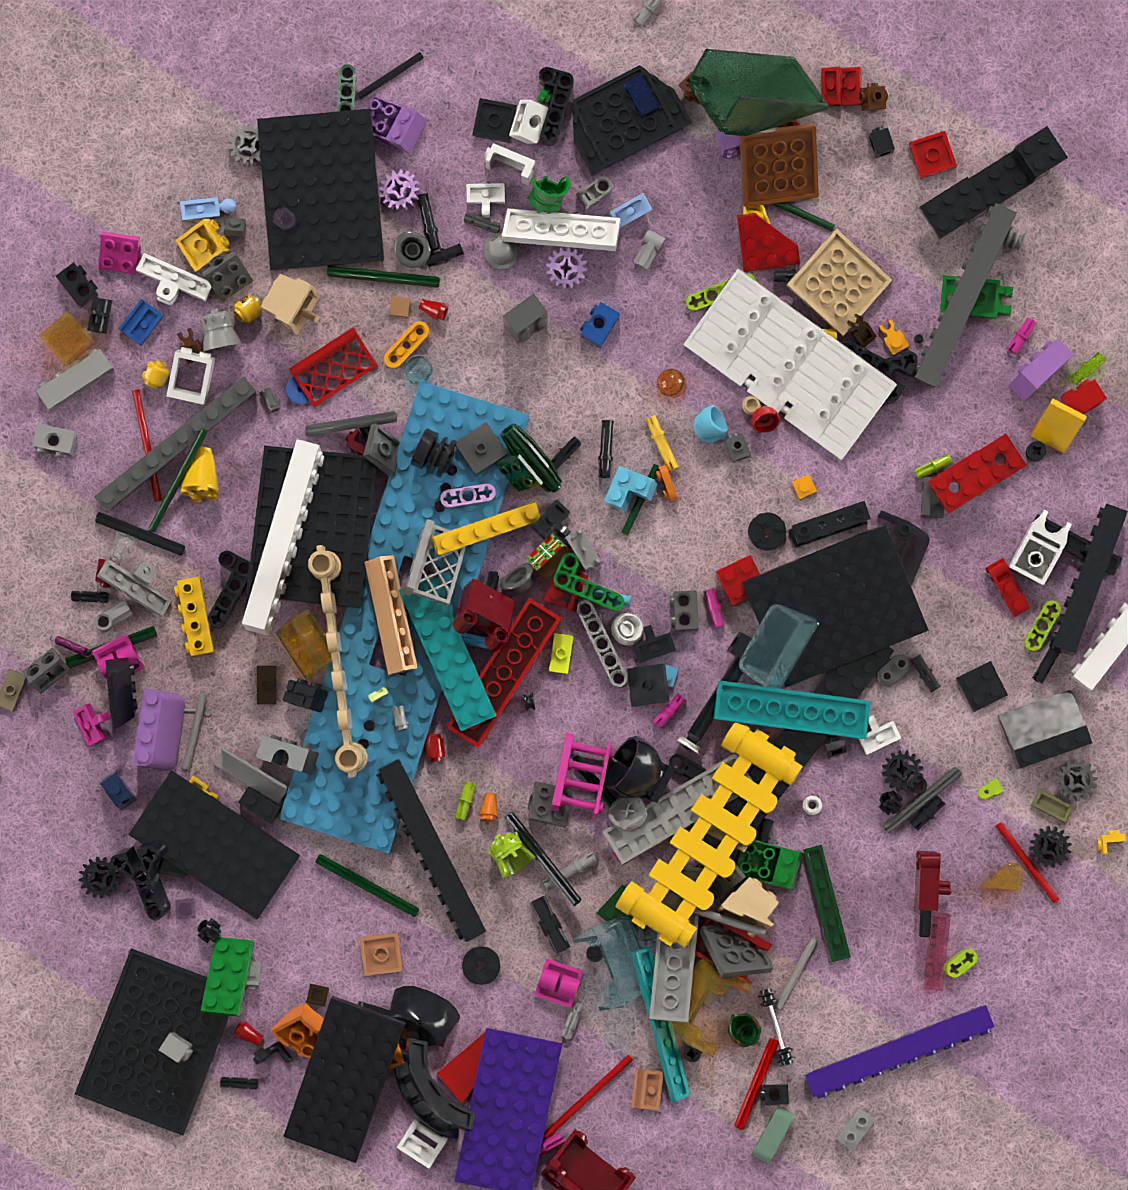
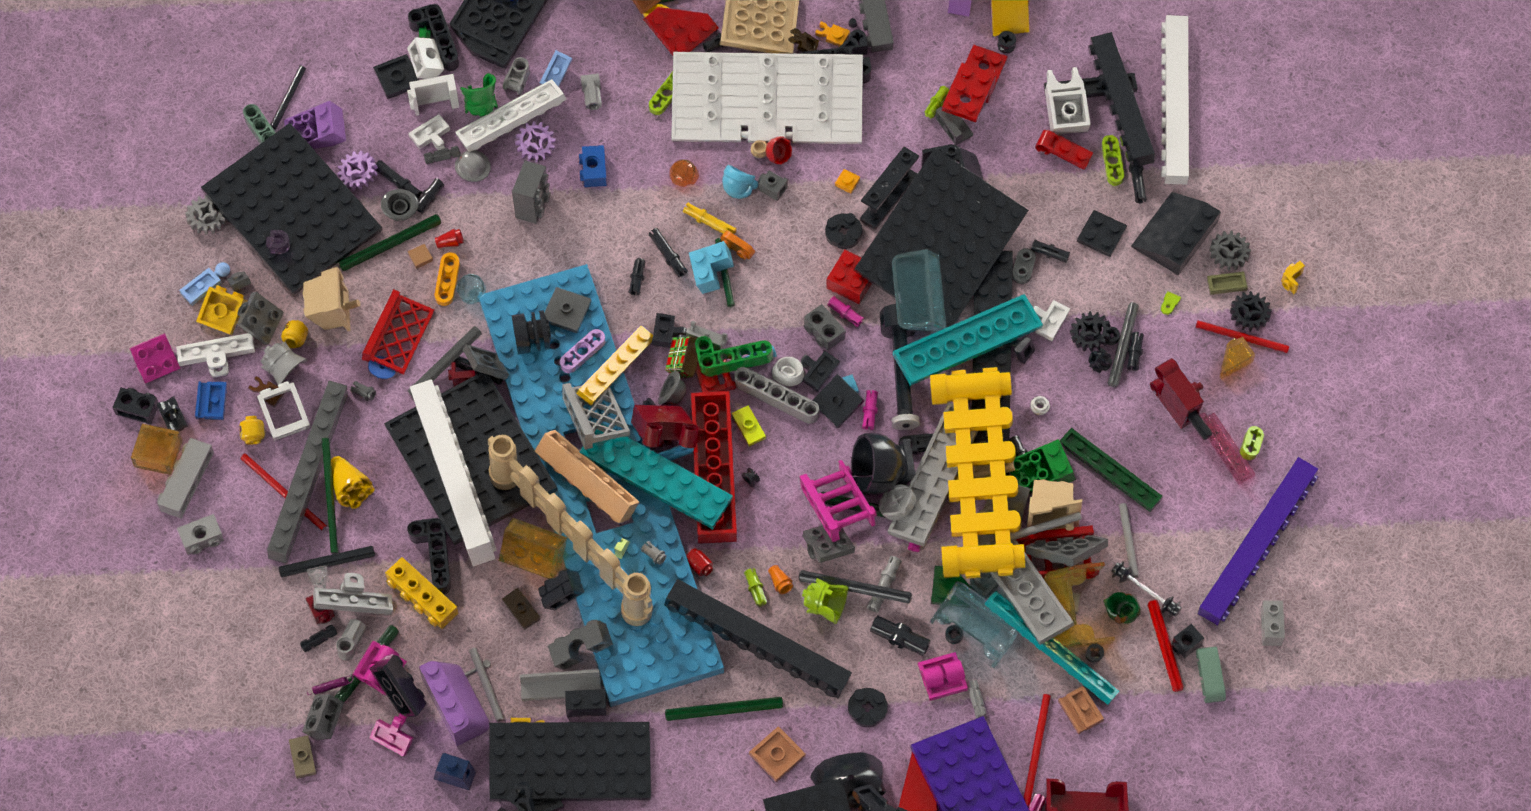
camera: 35 degrees left, 20 degrees down
(528, 464) = (612, 296): dark green plate -> none

